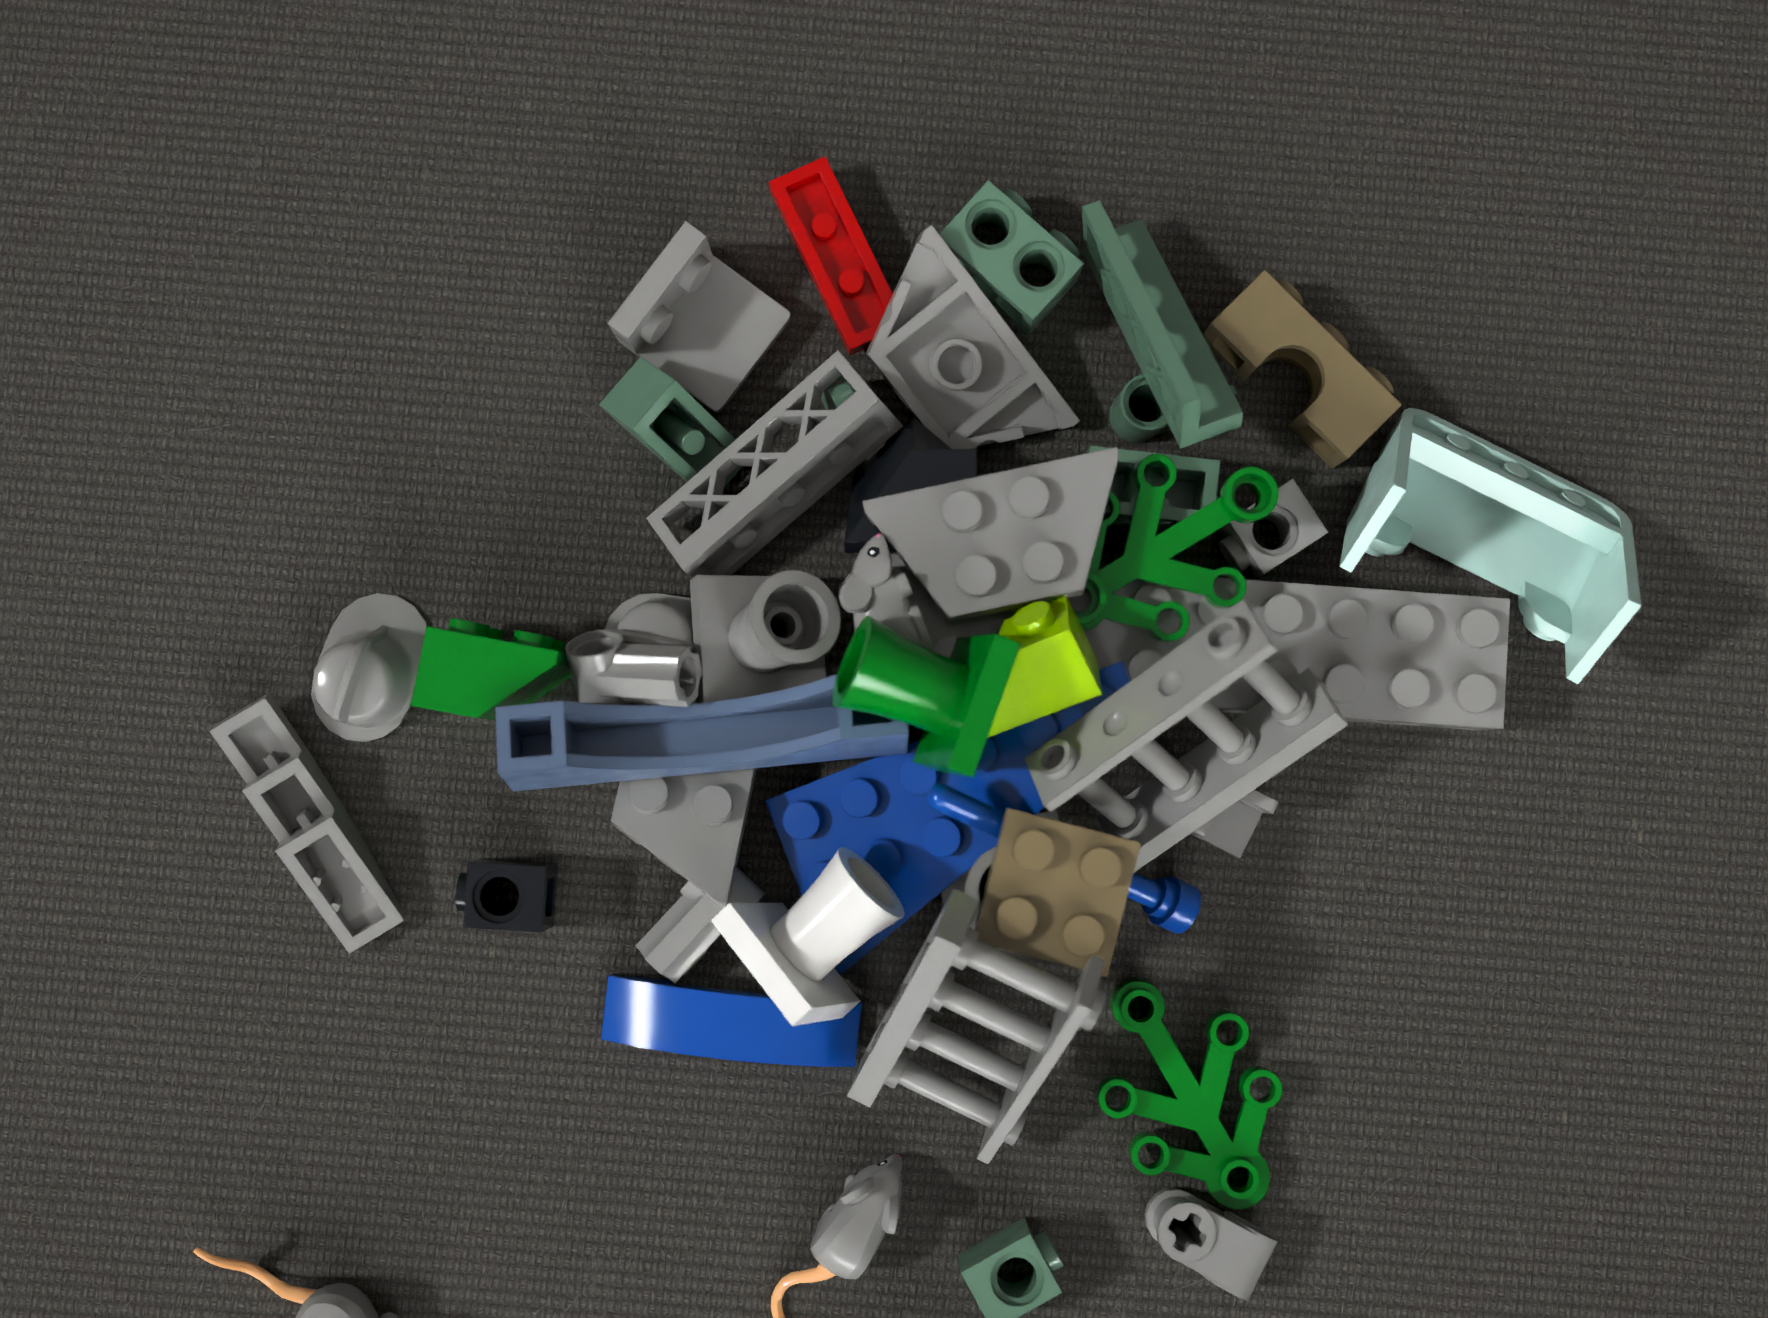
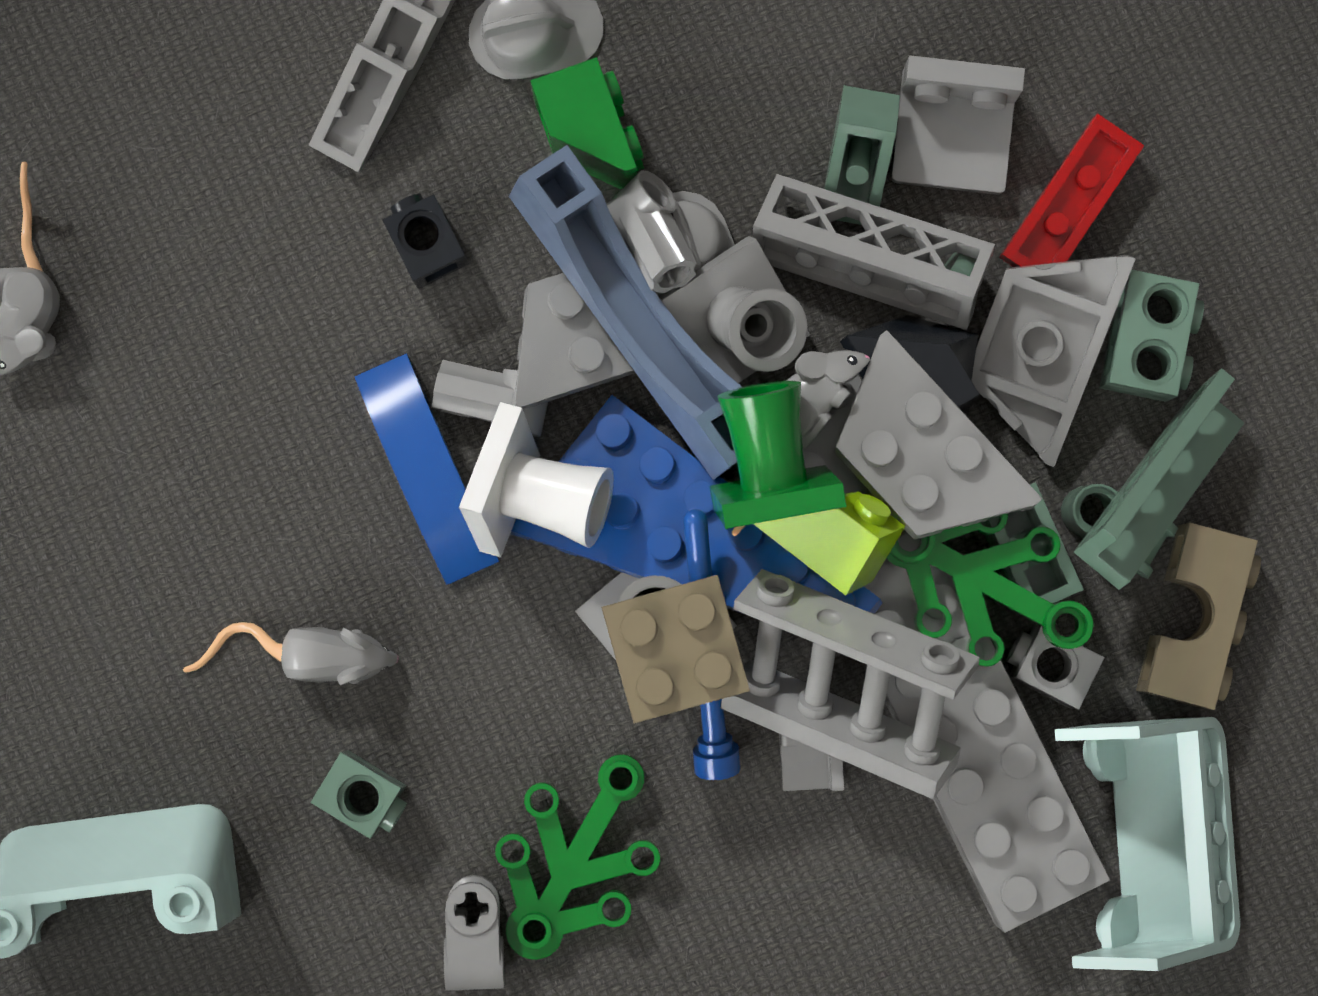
camera: 60 degrees right, 0 degrees up
(933, 986) = (548, 598): light grey fence -> none

